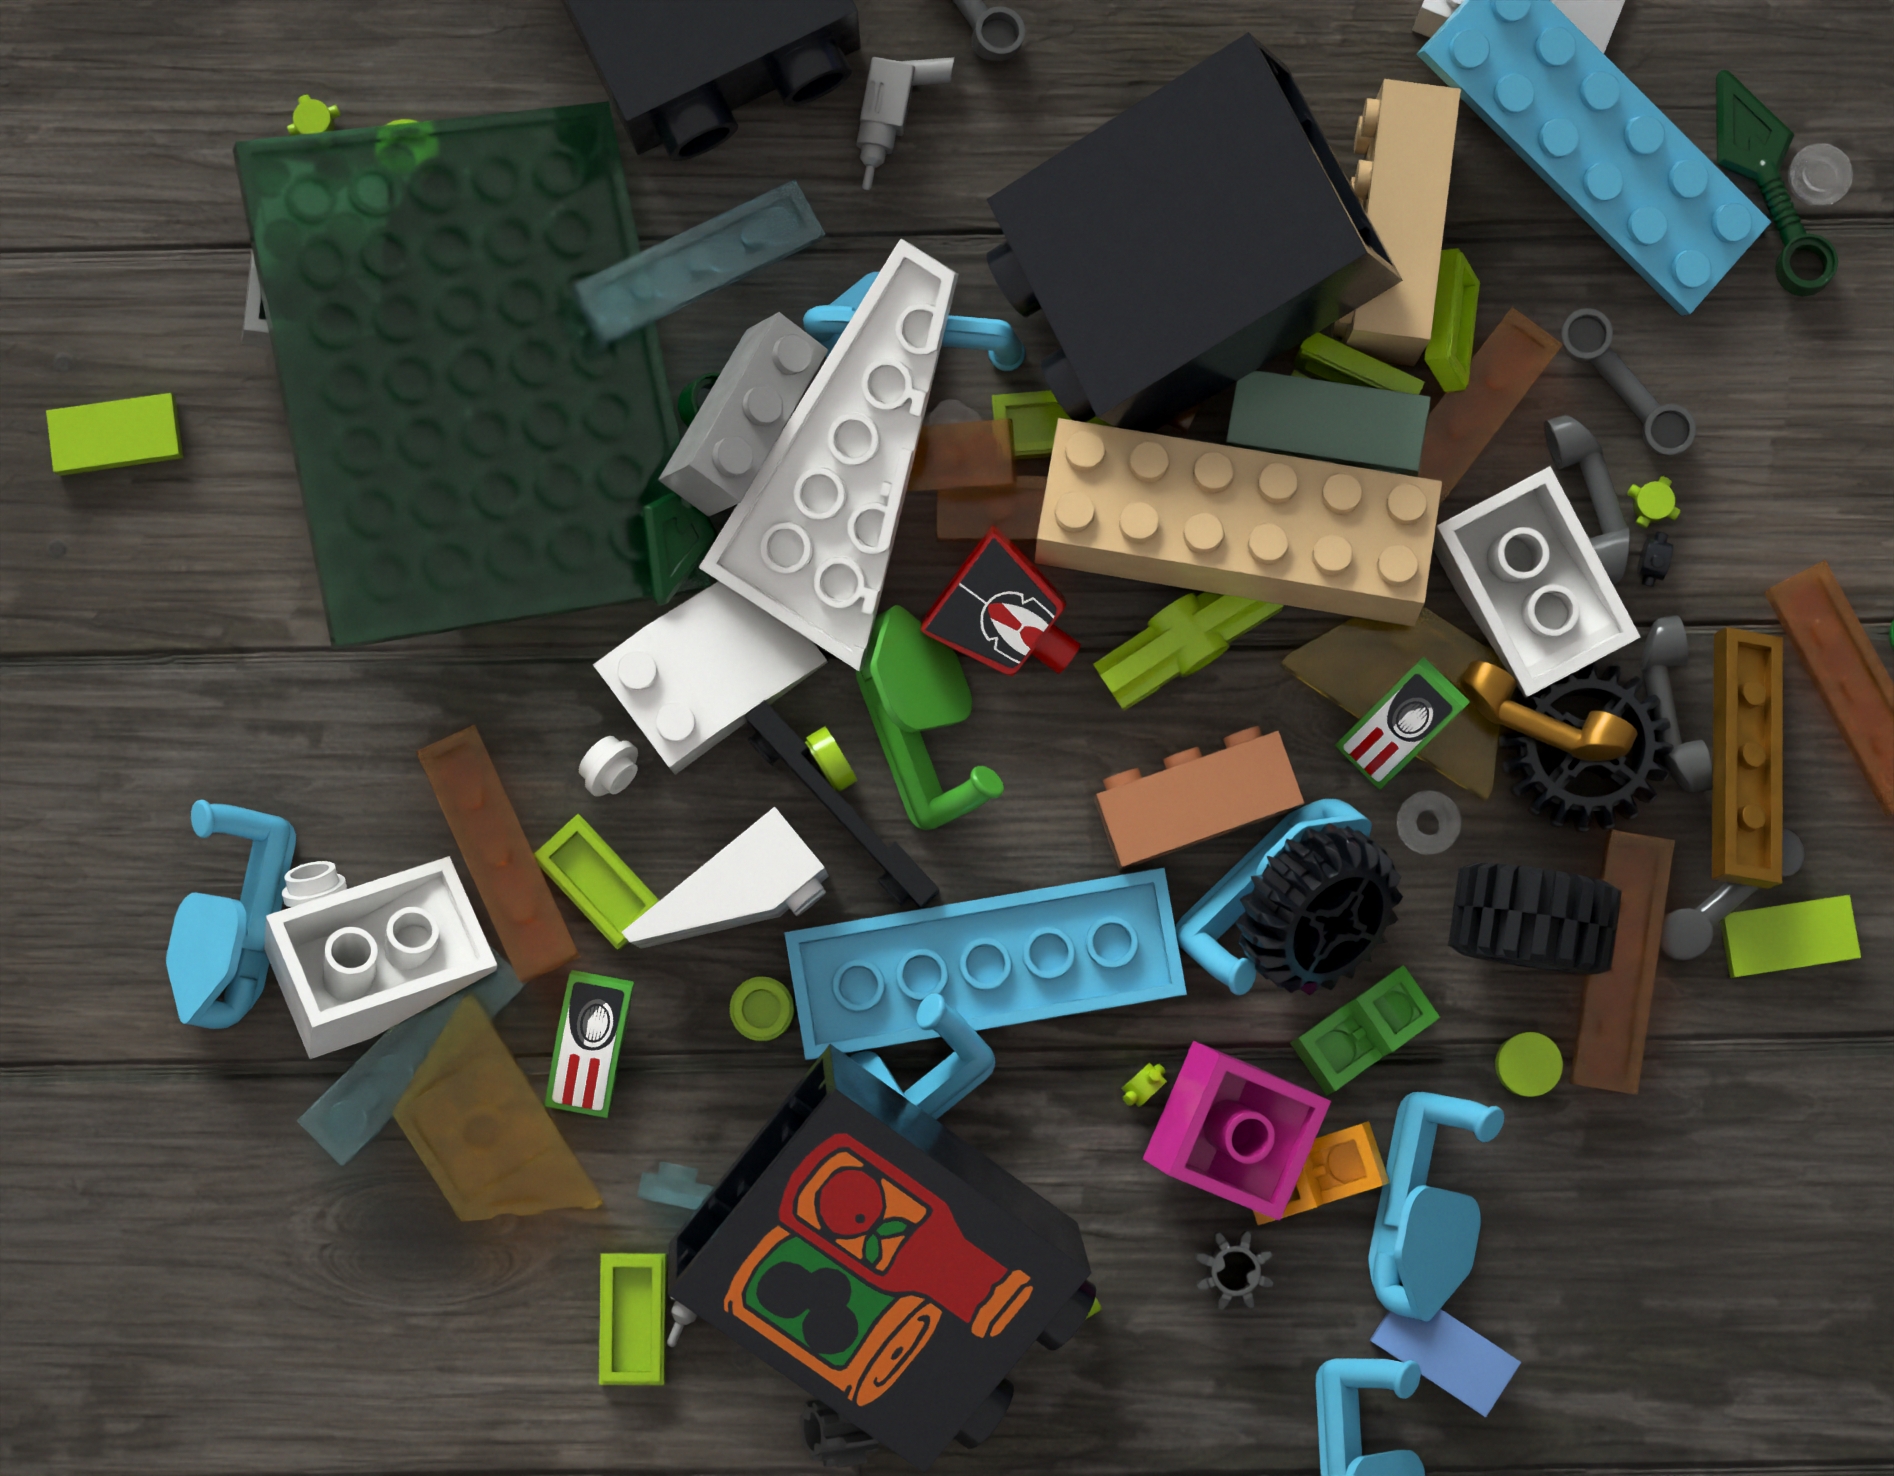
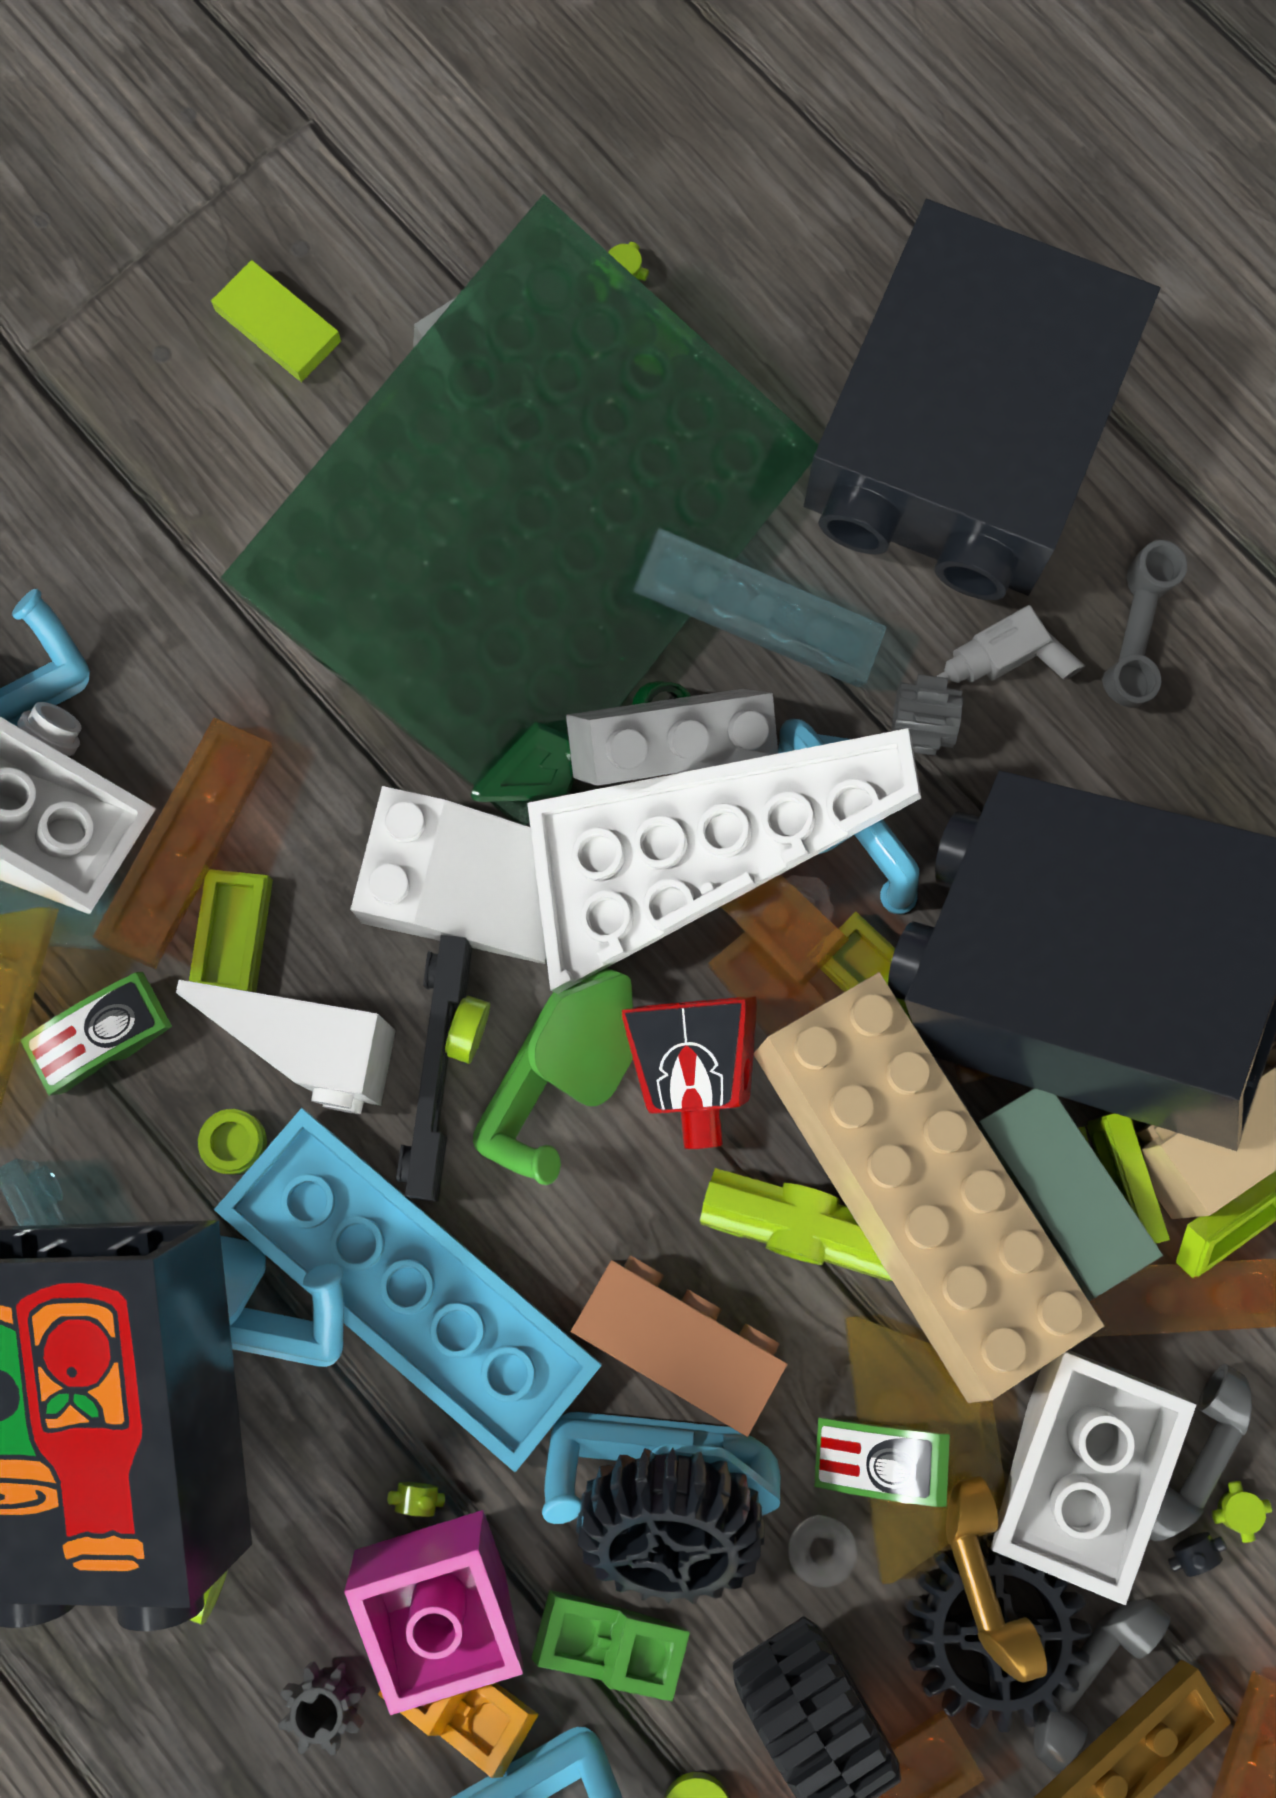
camera: 50 degrees right, 5 degrees down
(609, 766) = (322, 867): white plate -> none
(889, 209) = (928, 712): none -> dark grey gear

